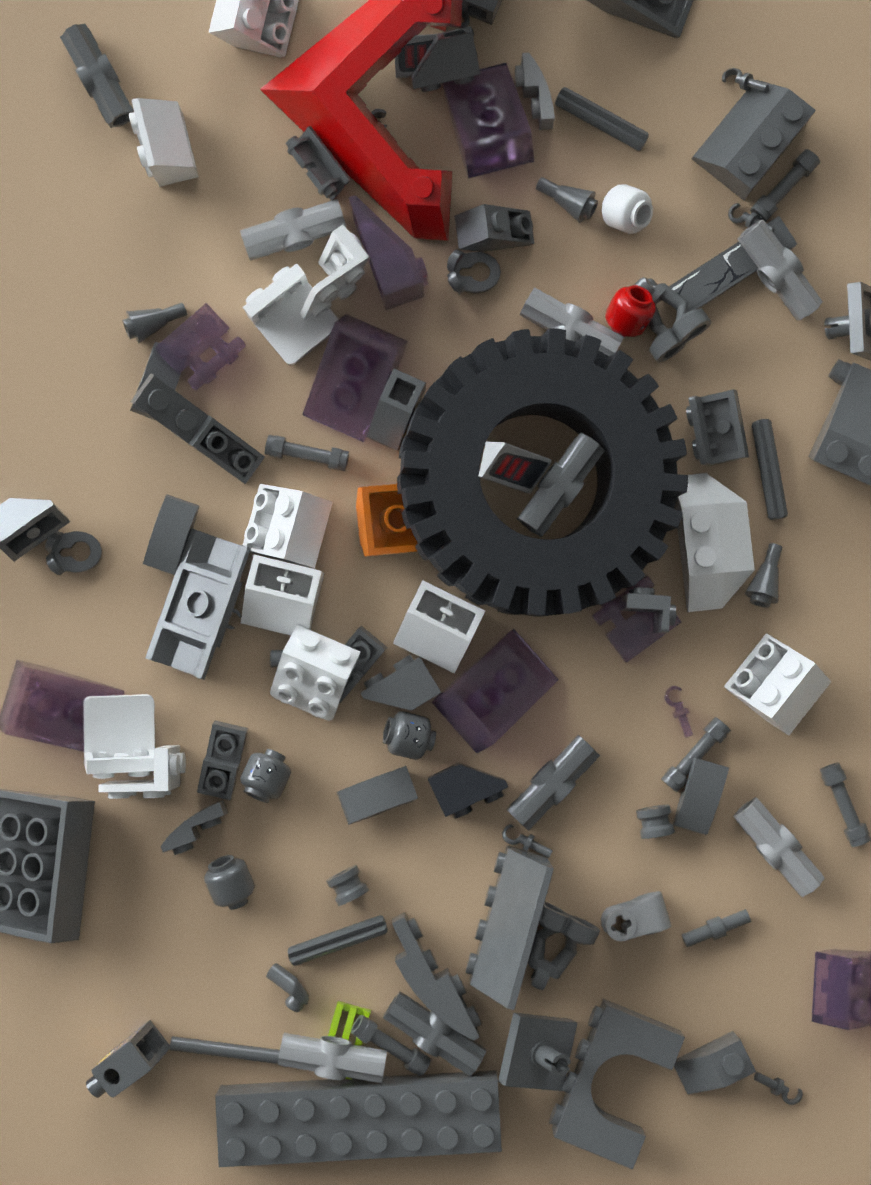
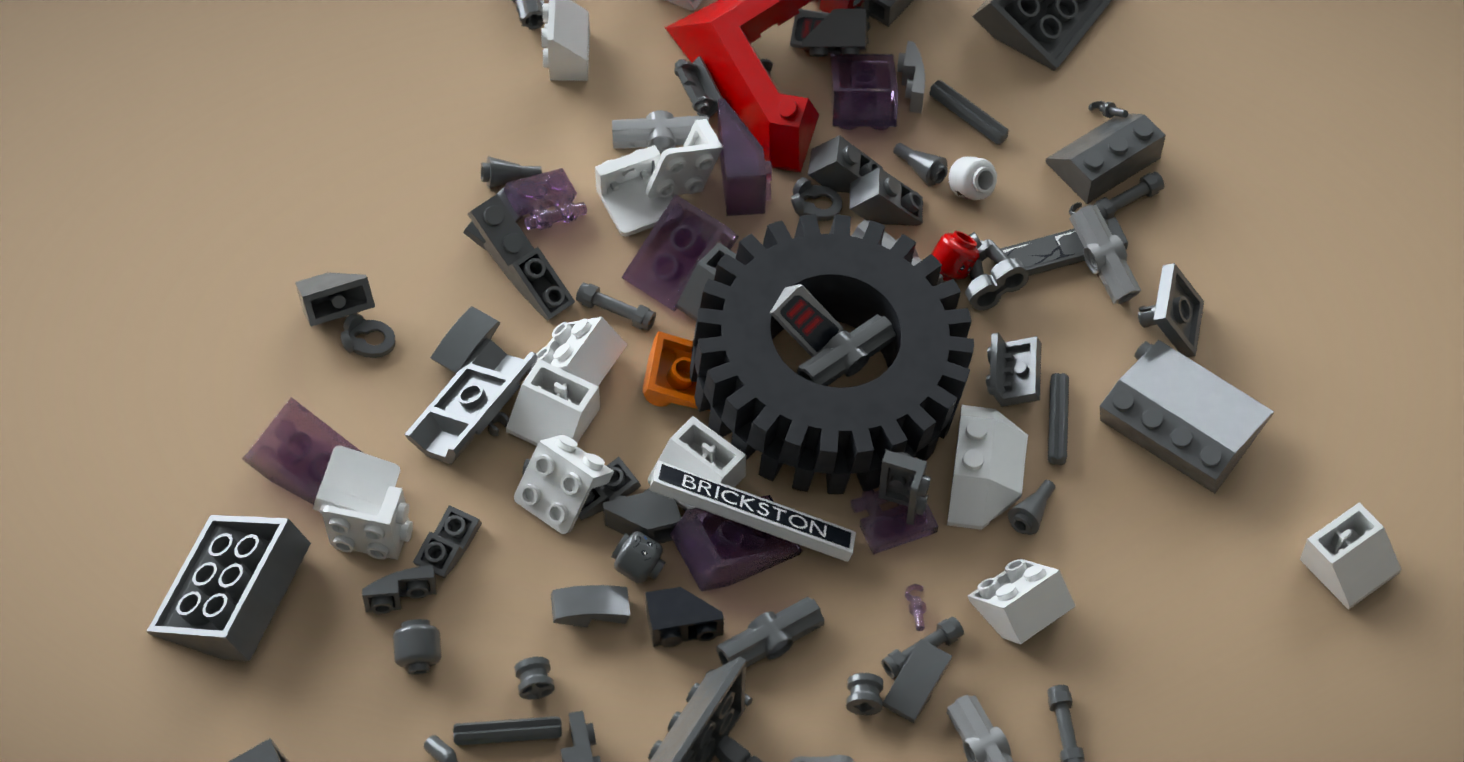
camera: 15 degrees right, 30 degrees down
(265, 776) = (485, 560): dark grey head -> none
(505, 666) = (752, 511): none -> tile
(544, 257) = (885, 200): none -> dark grey slope

